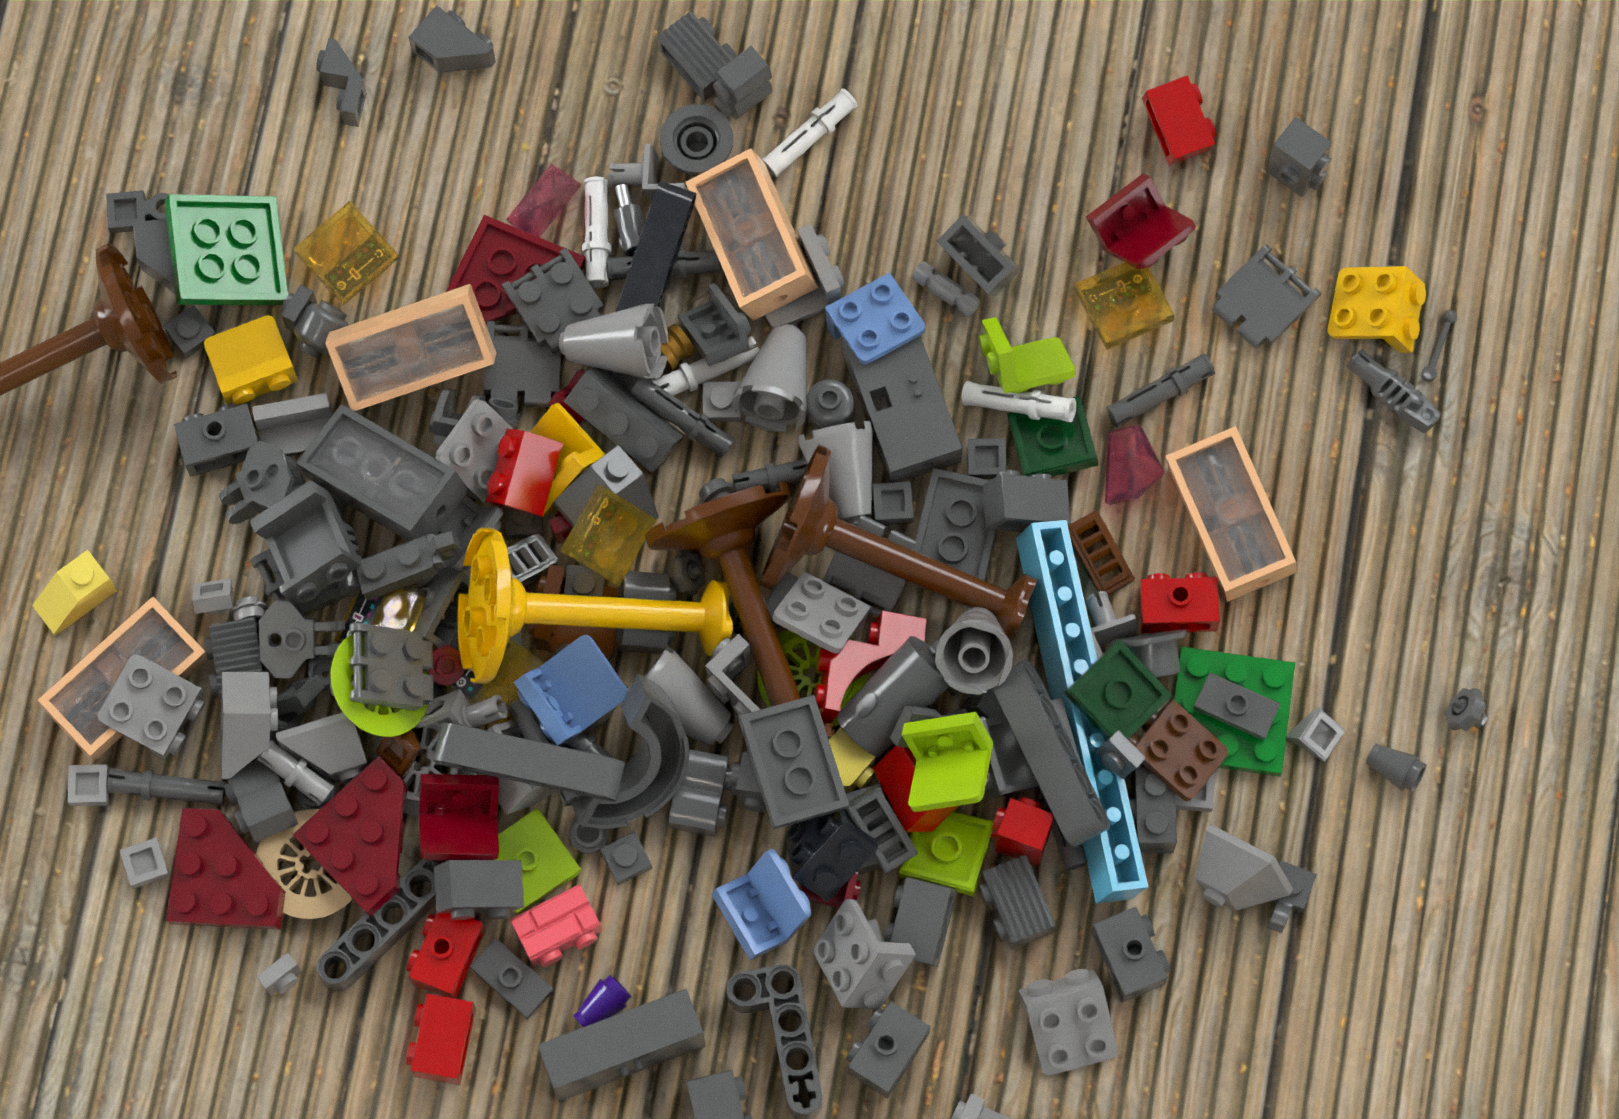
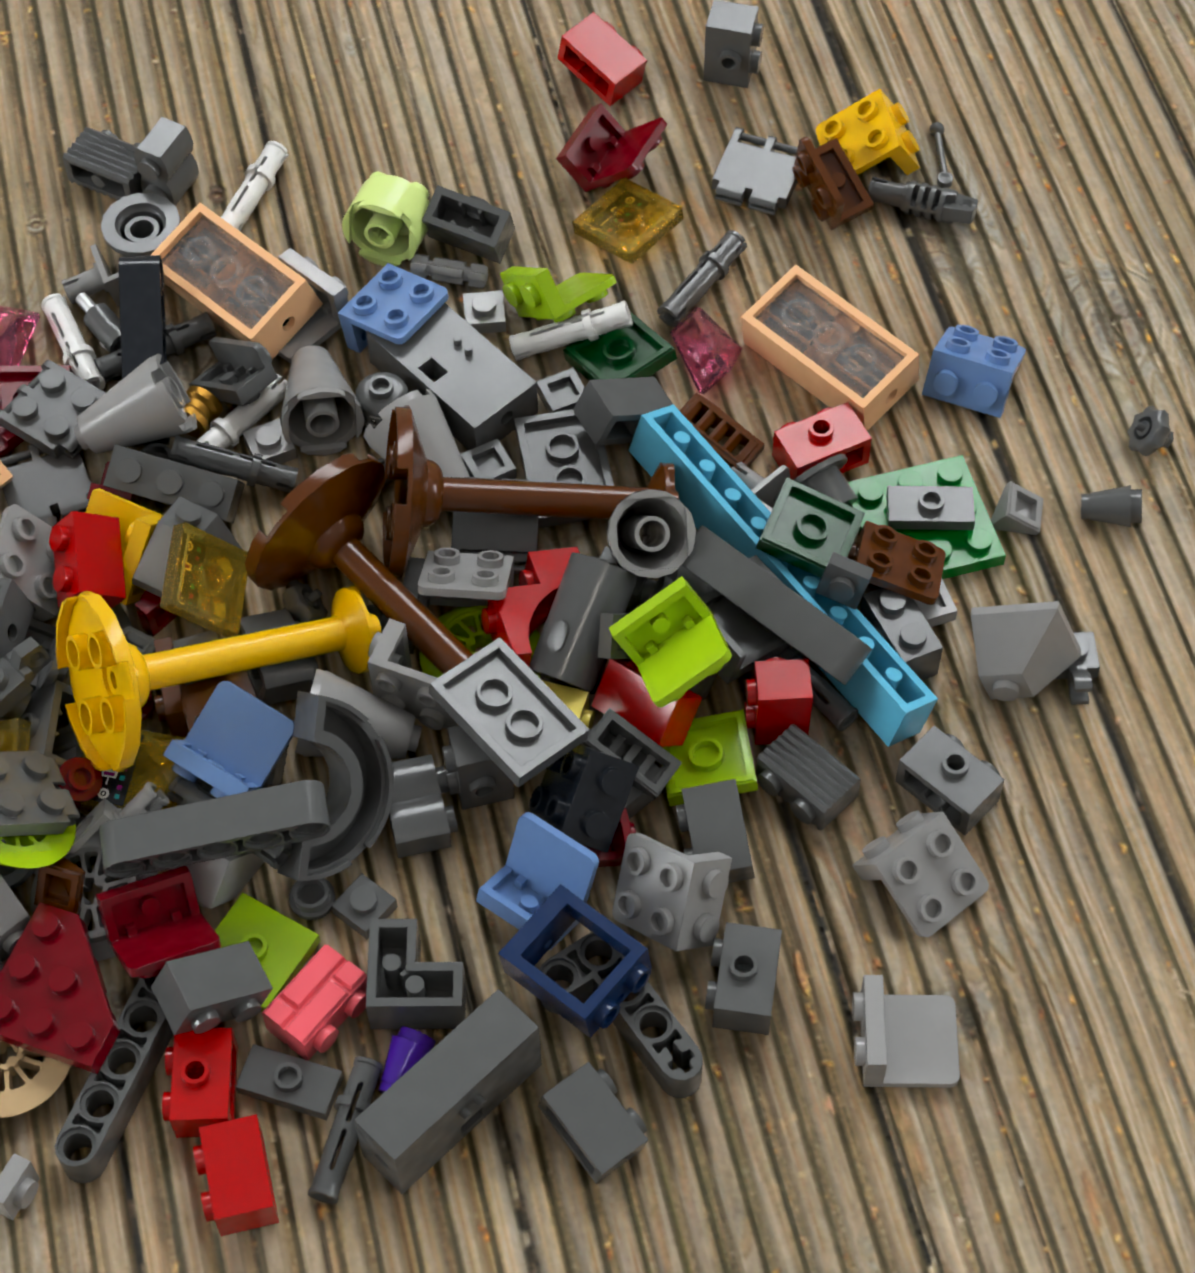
camera: 25 degrees left, 15 degrees down
(568, 1000) = (327, 1181): none -> dark grey pin
(621, 942) = (407, 990): none -> dark grey brick
(741, 952) = (542, 932): none -> dark blue window
(910, 221) = (387, 219): none -> yellowish green brick
(957, 344) = (485, 311): none -> light grey plate
(1318, 344) = (831, 181): none -> reddish brown bracket
(1349, 582) = (973, 369): none -> medium blue bracket

